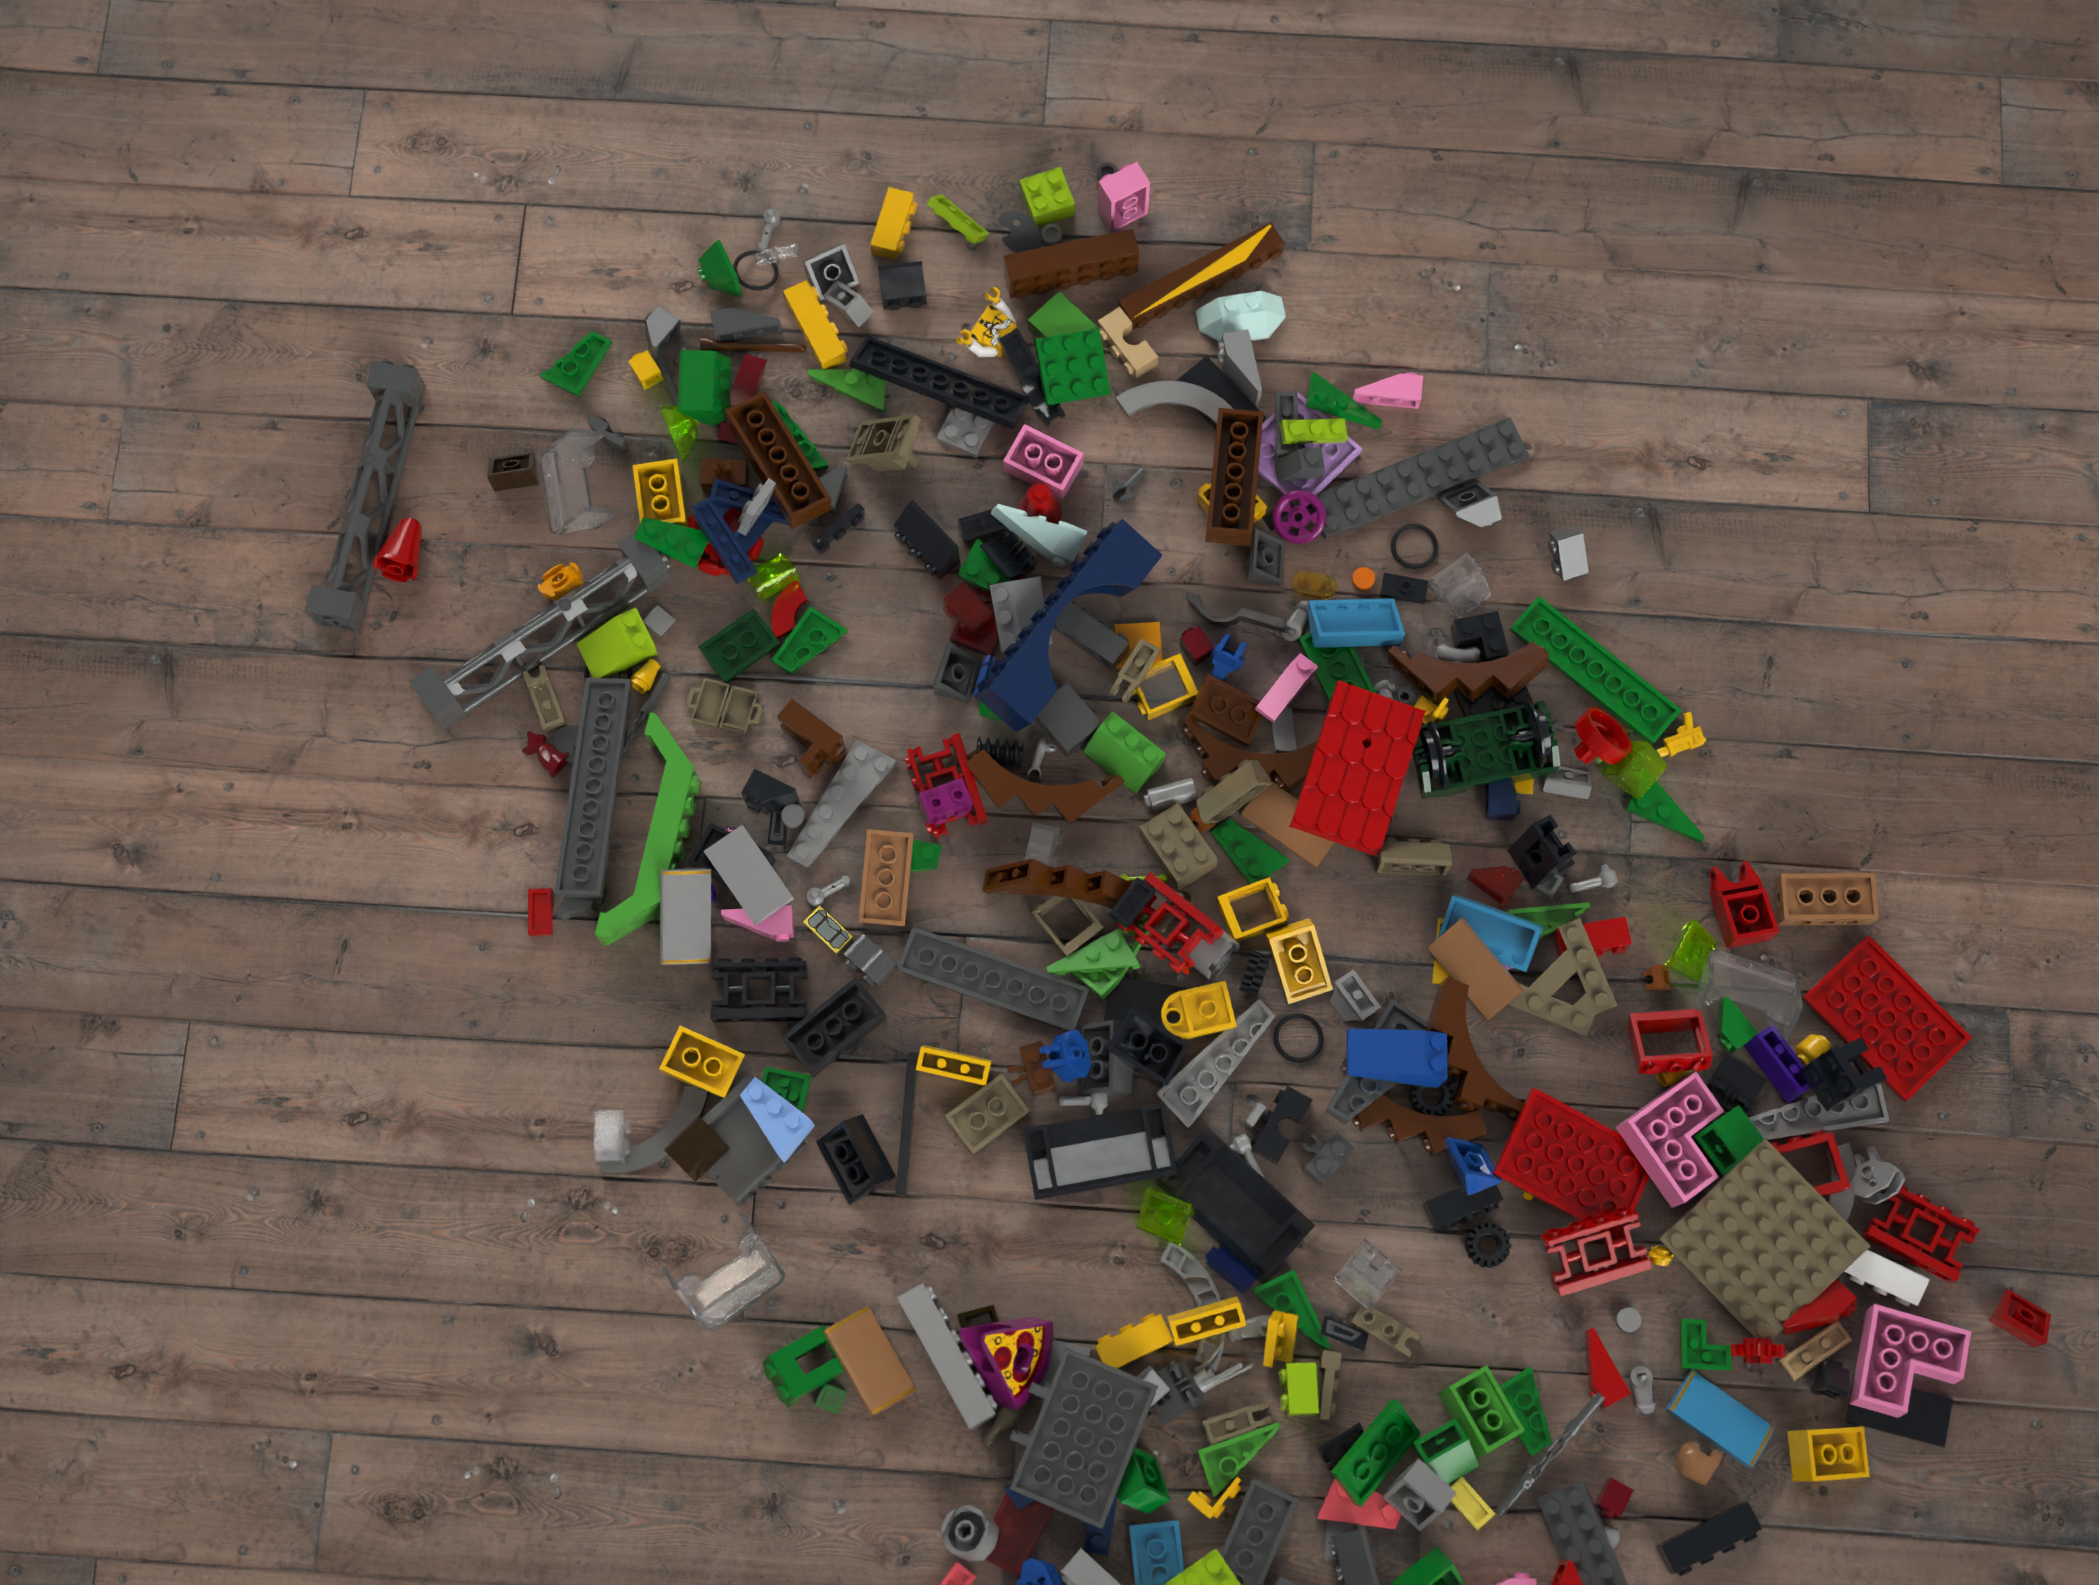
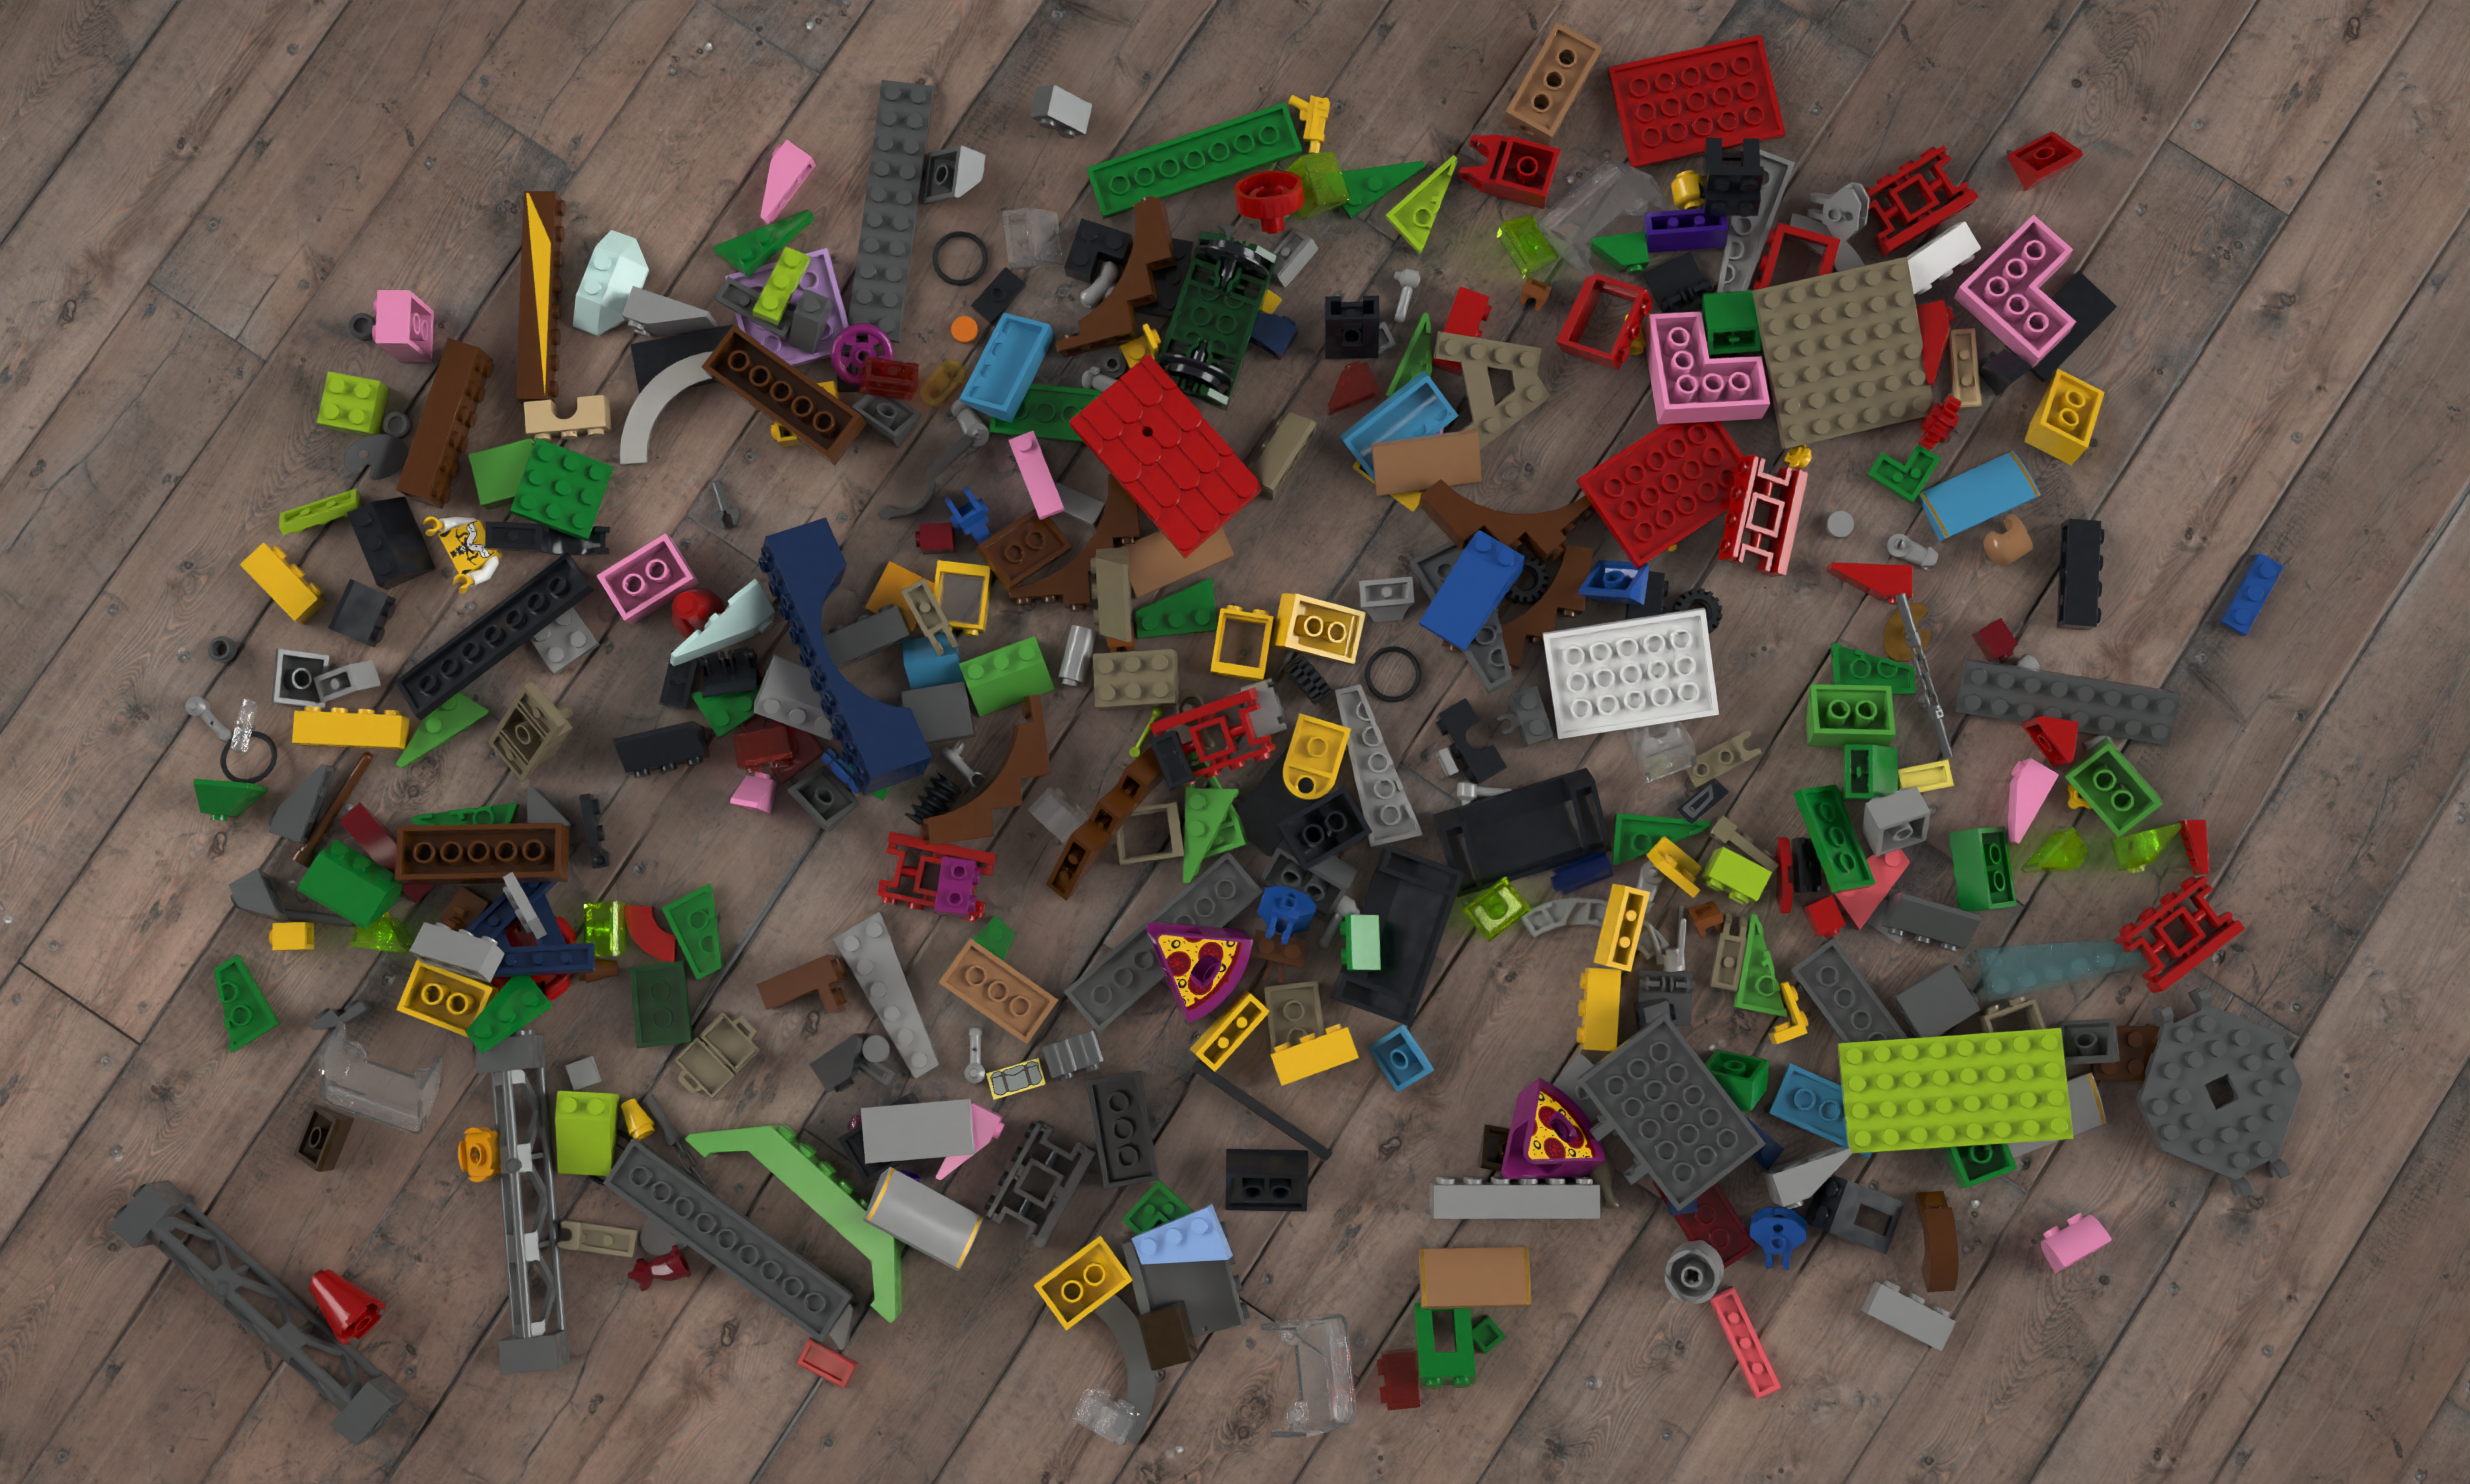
camera: 60 degrees left, 10 degrees up
(697, 480) = (457, 951): none -> light grey brick
(741, 590) = (603, 970): none -> reddish brown cone
(756, 1348) = (1400, 1379): none -> clear red brick
(822, 205) = (216, 644): none -> dark grey plate
(931, 622) = (756, 793): none -> bright pink slope
(965, 276) = (391, 541): none -> black slope
(971, 1138) = (1313, 1054): none -> yellow brick
(992, 1012) = (1199, 963): none -> piece
(1007, 1209) = (1400, 1058): none -> dark azure slope
(1077, 1124) = (1362, 943): none -> slope
(1096, 693) = (928, 669): none -> dark azure slope
(1254, 1386) = (1706, 916): none -> dark orange tile
(1293, 543) = (888, 378): none -> clear red brick
(1310, 1482) = (1824, 917): none -> red brick
(1324, 1430) = (1784, 887): none -> red tile
(1408, 1216) = (1631, 673): none -> white plate
(1563, 1416) = (1894, 638): none -> pearl gold piece
(1664, 855) = (1418, 210): none -> lime wing

